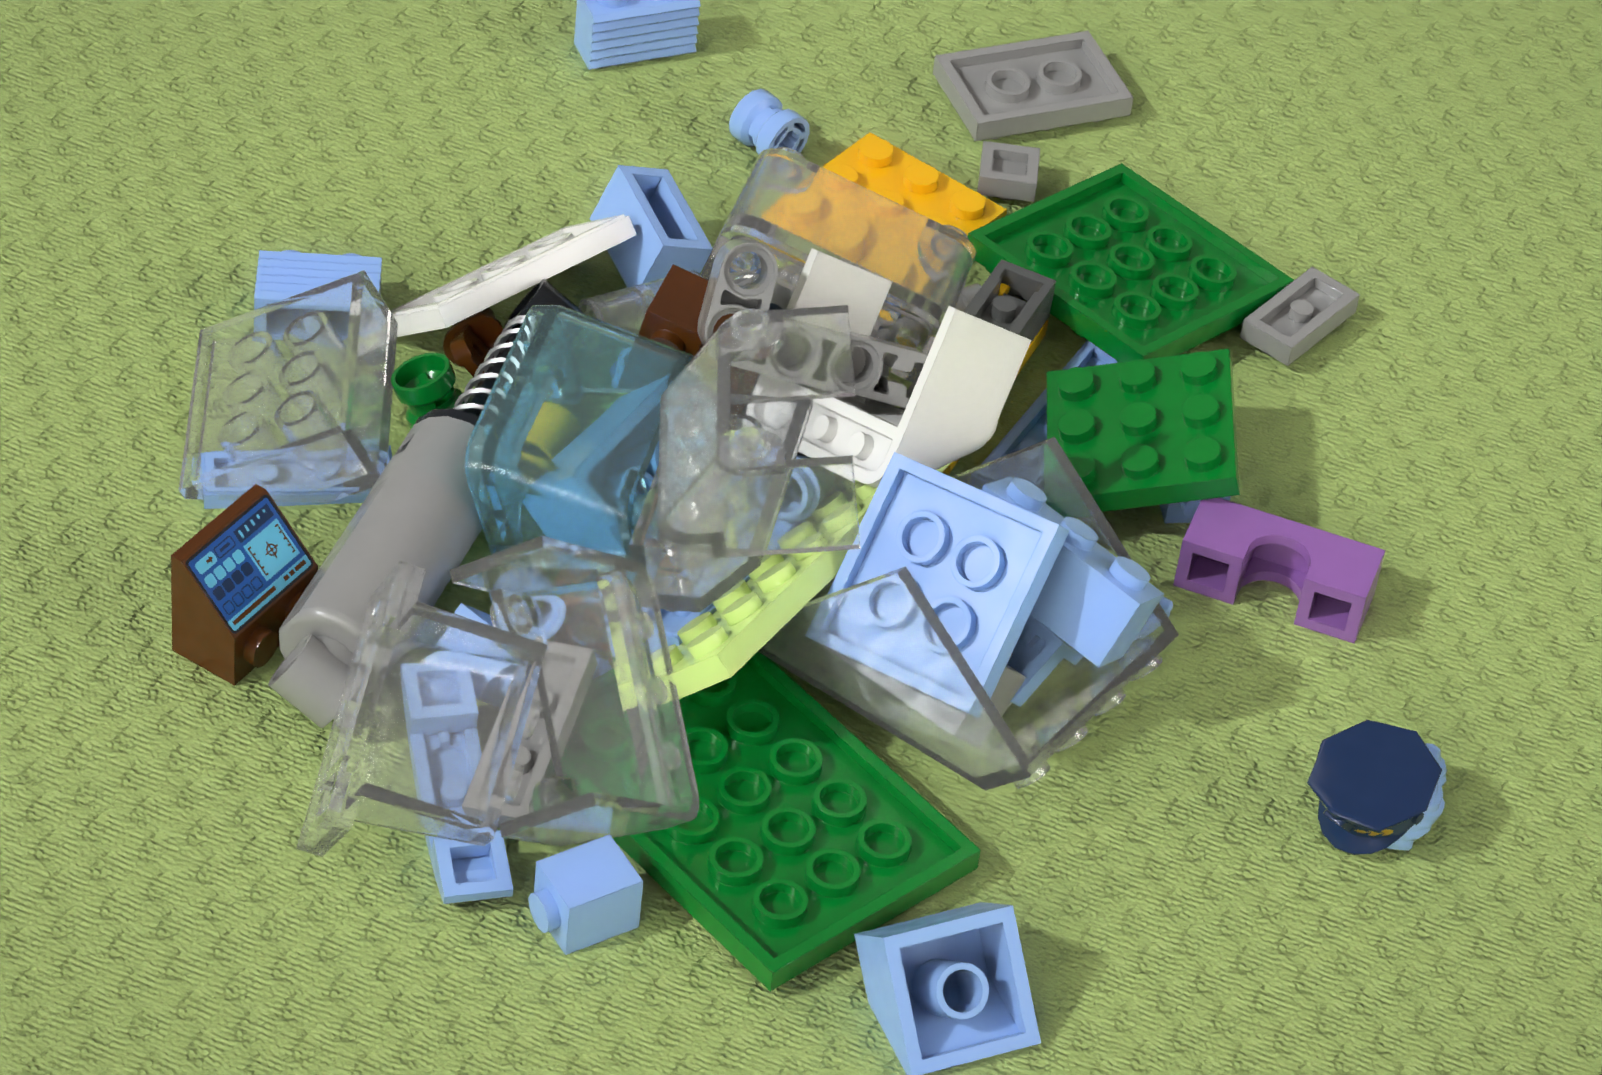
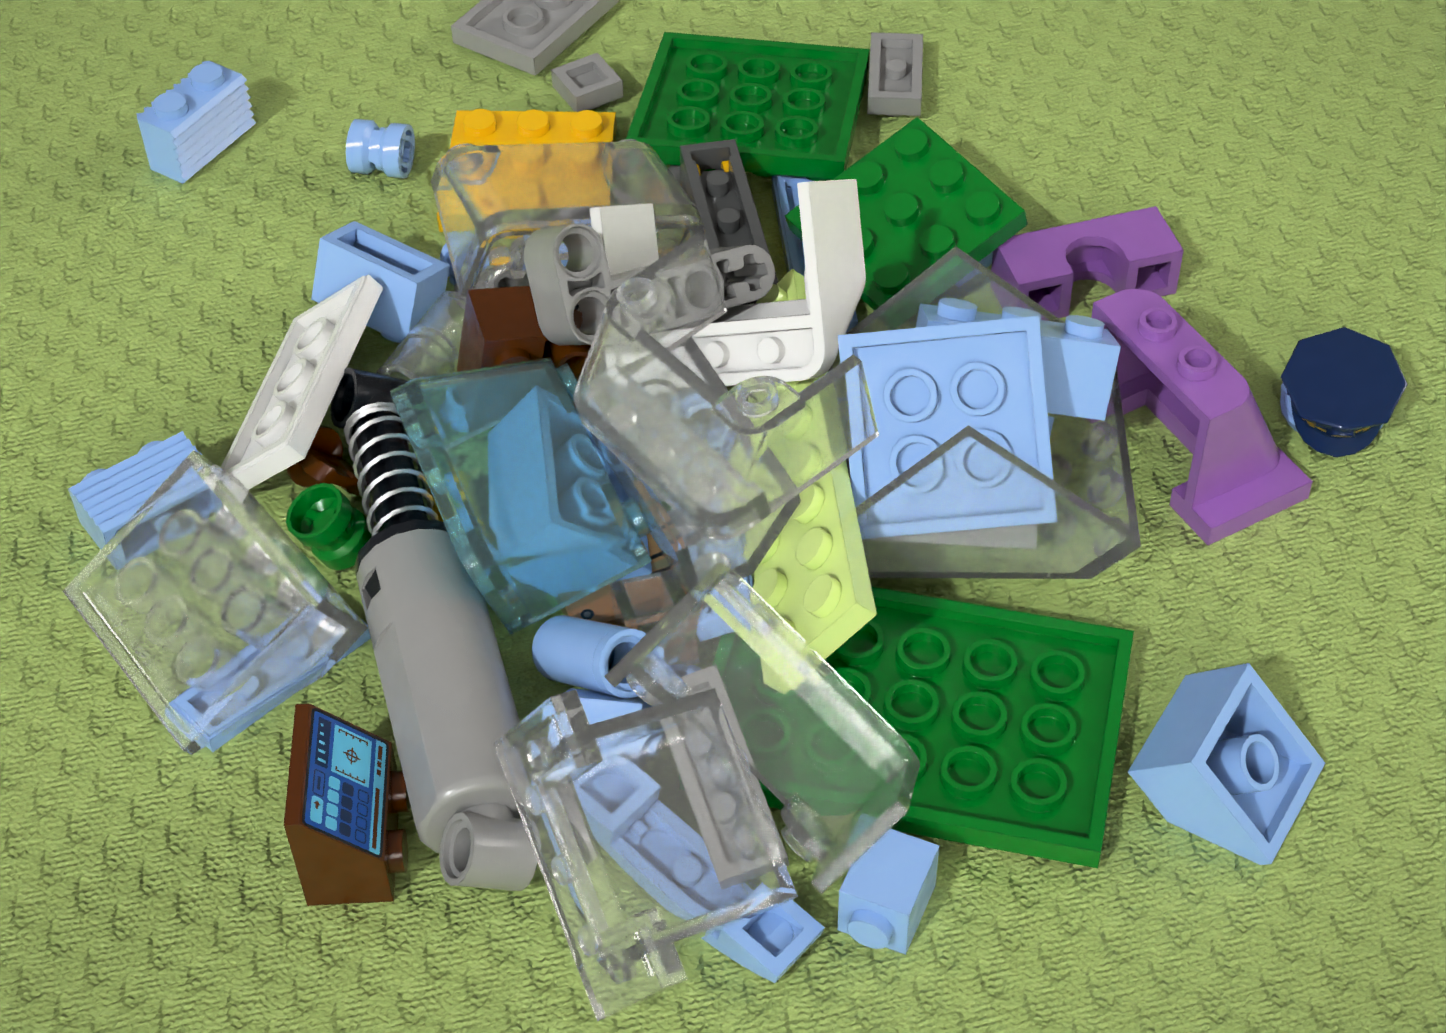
camera: 30 degrees left, 5 degrees up
(1220, 729) = (1209, 407): none -> medium lavender windscreen

